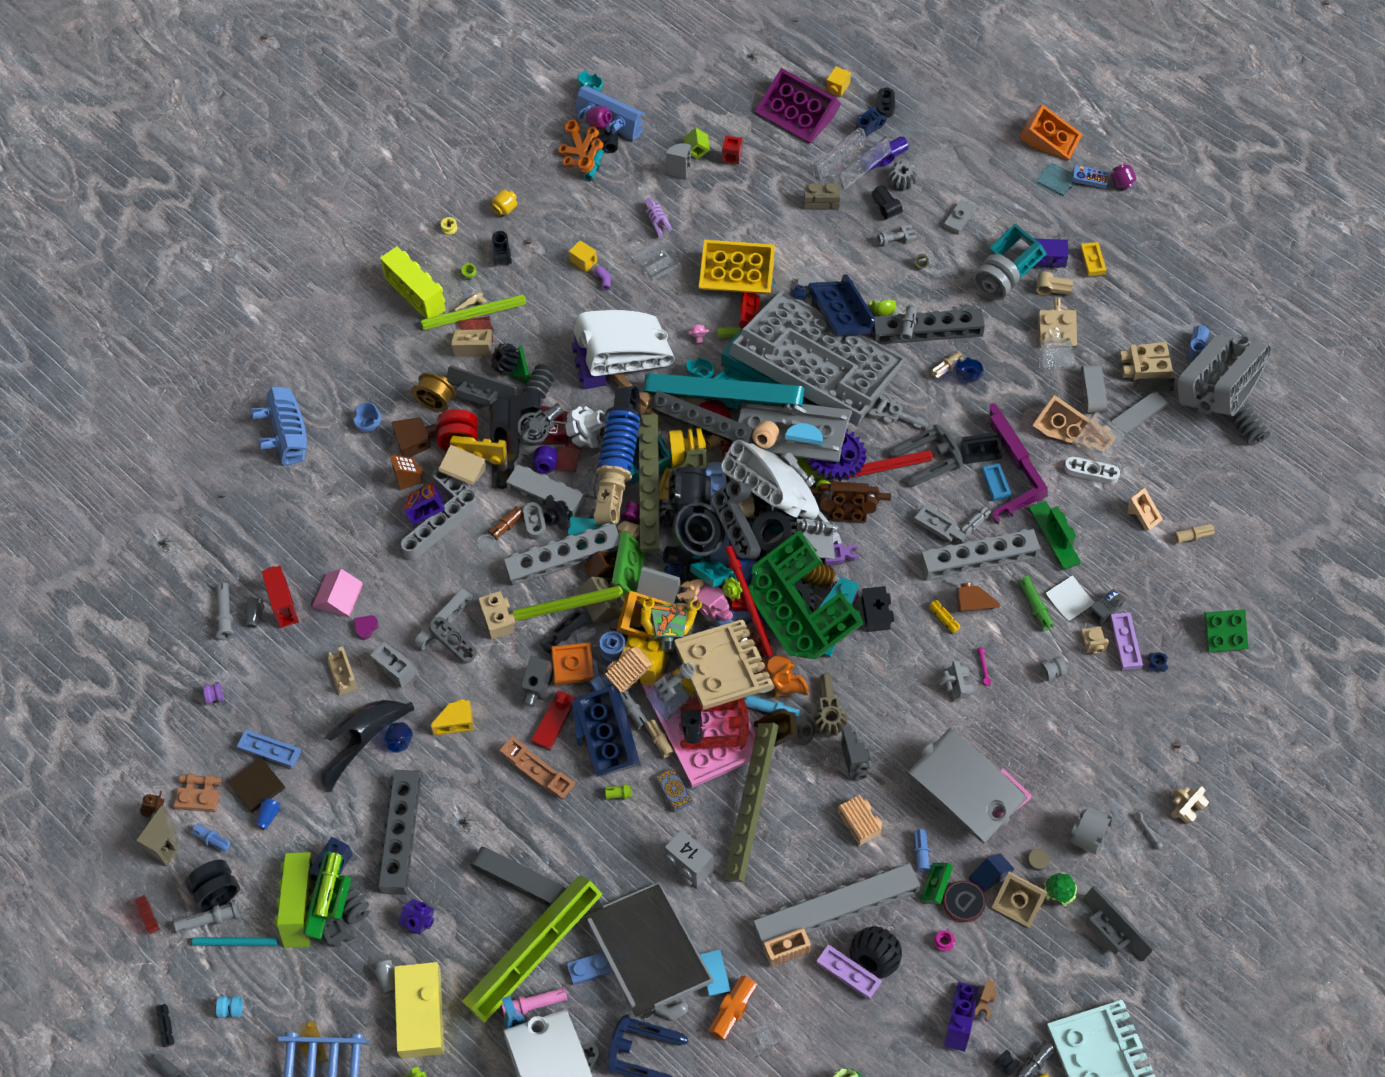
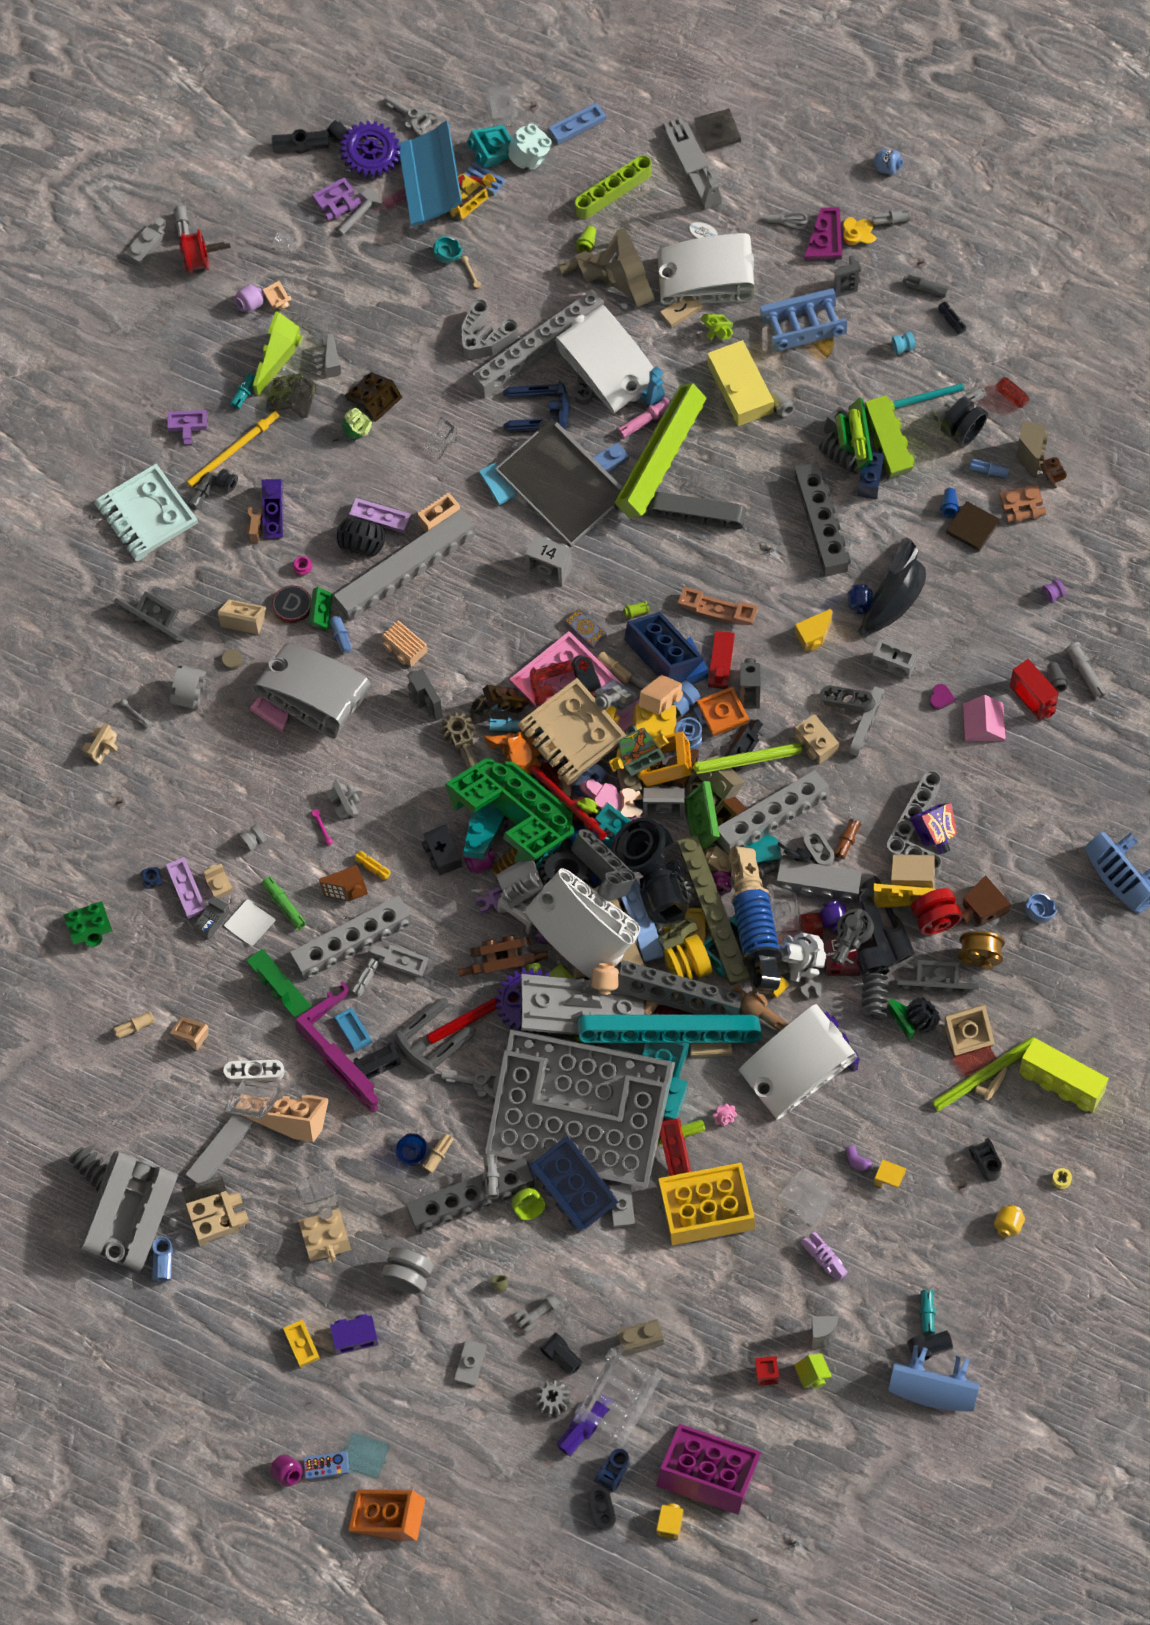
camera: 165 degrees right, 5 degrees up
(269, 749) = (976, 557): medium blue plate -> none
(341, 672) = (941, 646): tan hinge -> none
(406, 471) = (971, 856): dark orange slope -> none
(416, 916) = (773, 451): dark purple brick -> none
(469, 266) = (1011, 1121): lime hinge -> none
(586, 161) = (936, 1300): orange plant -> none
(592, 81) = (976, 1427): teal hair -> none
(598, 117) = (940, 1357): magenta head -> none
(700, 368) = (706, 1066): teal hair -> none
(732, 1008) = (472, 460): orange piece -> none
(751, 802) = (508, 627): olive plate -> none
(792, 461) = (571, 965): light grey hinge -> none
(798, 291) = (629, 1185): dark blue plate -> none
(804, 433) = (563, 985): medium azure tile -> none
(991, 872) = (271, 635): dark blue slope -> none
(1026, 259) = (401, 1302): teal window -> none
(1049, 284) = (346, 1293): tan piece -> none
(1061, 888) = (207, 632): green piece -> none
(1093, 388) = (269, 1168): light grey beam -> none

